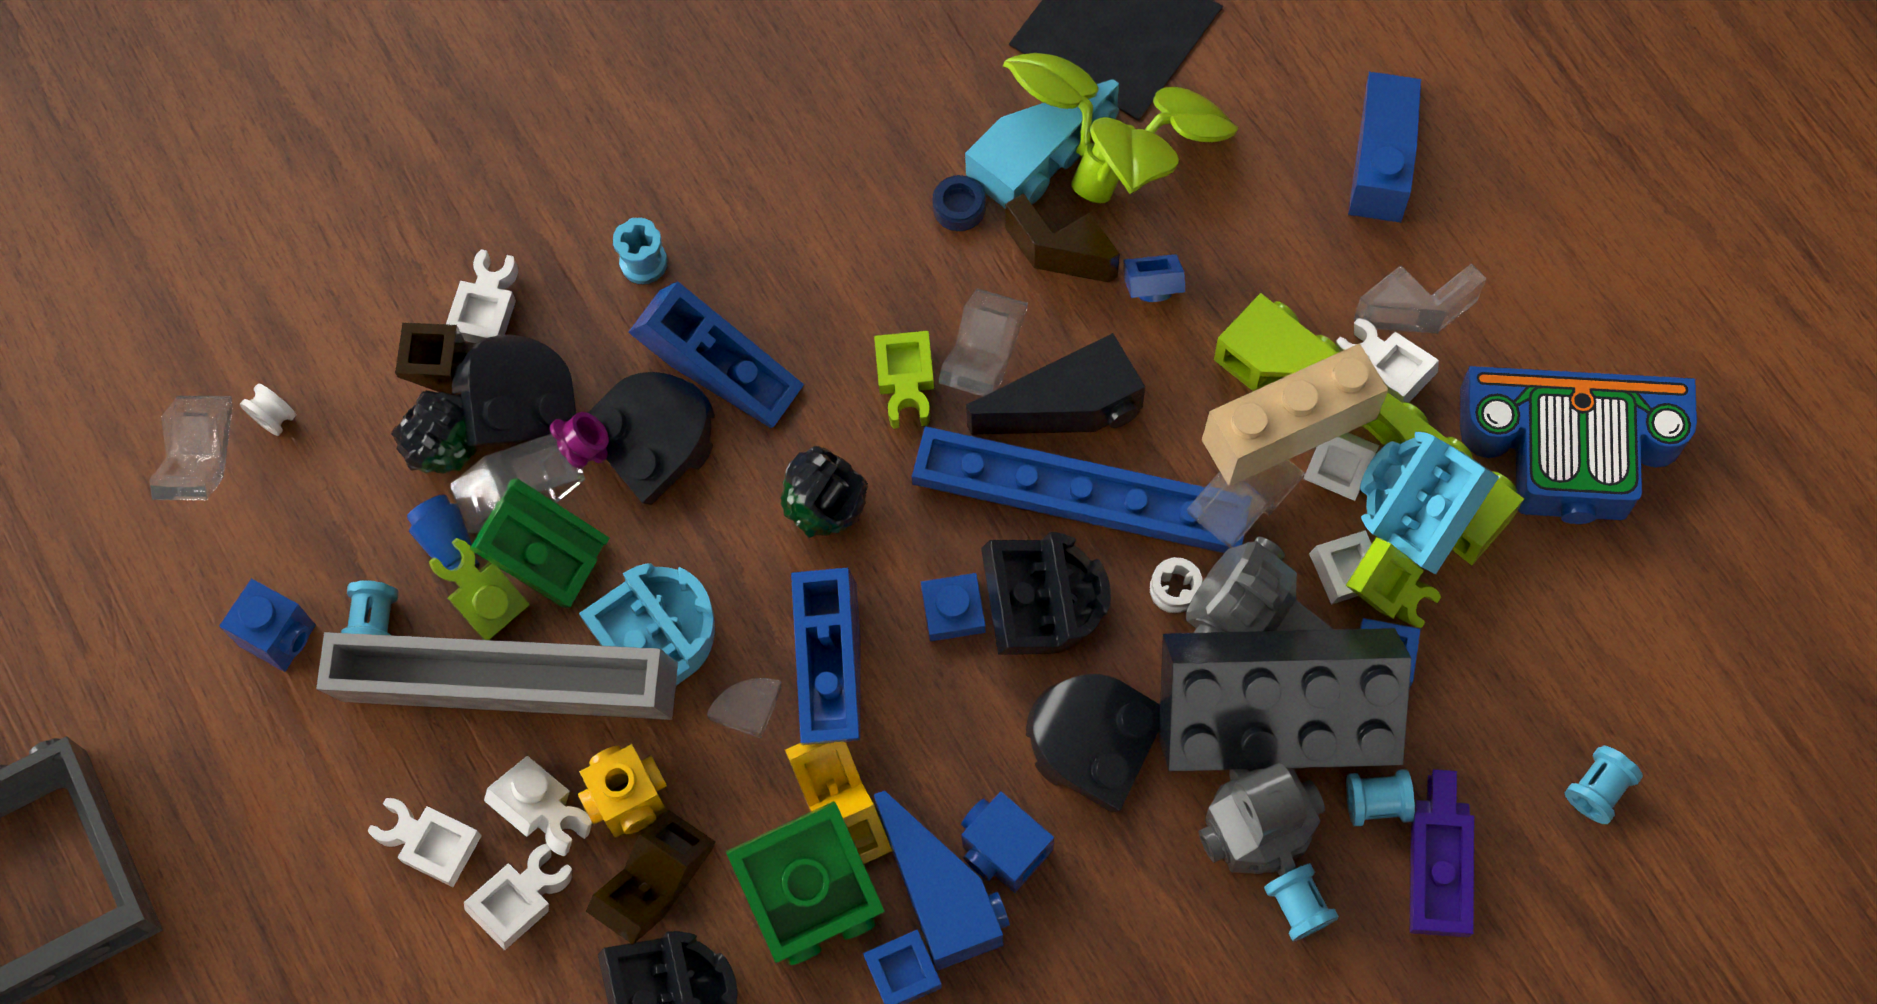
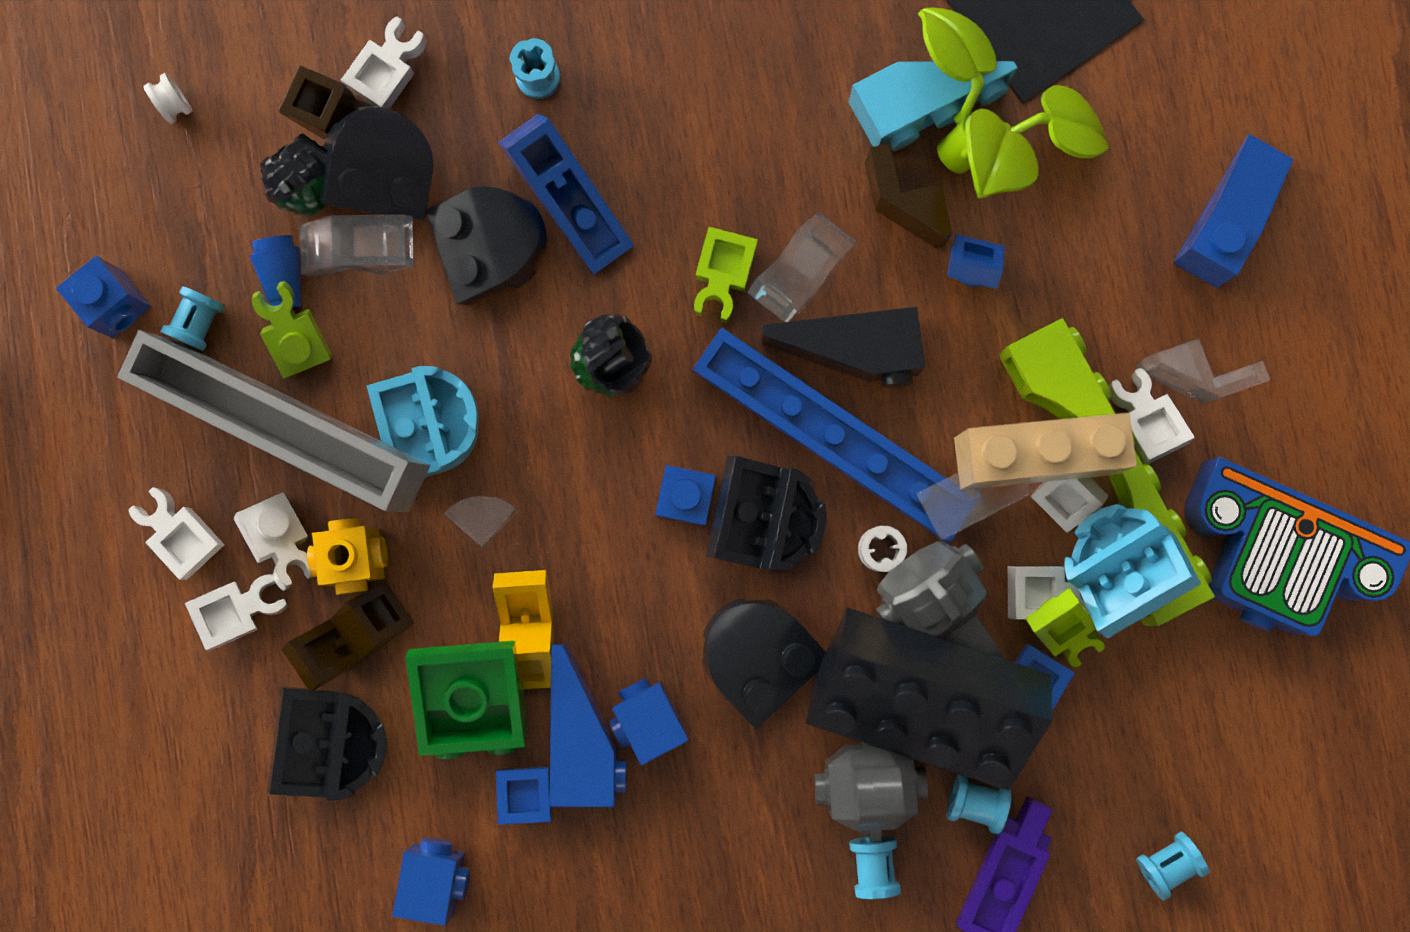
camera: 25 degrees right, 15 degrees up
(195, 447) = (101, 104): clear slope -> none
(539, 543) = (352, 311): green plate -> none
(581, 439) = (426, 223): magenta plate -> none
(827, 655) = (557, 509): blue slope -> none
(959, 203) = (832, 125): dark blue tile -> none

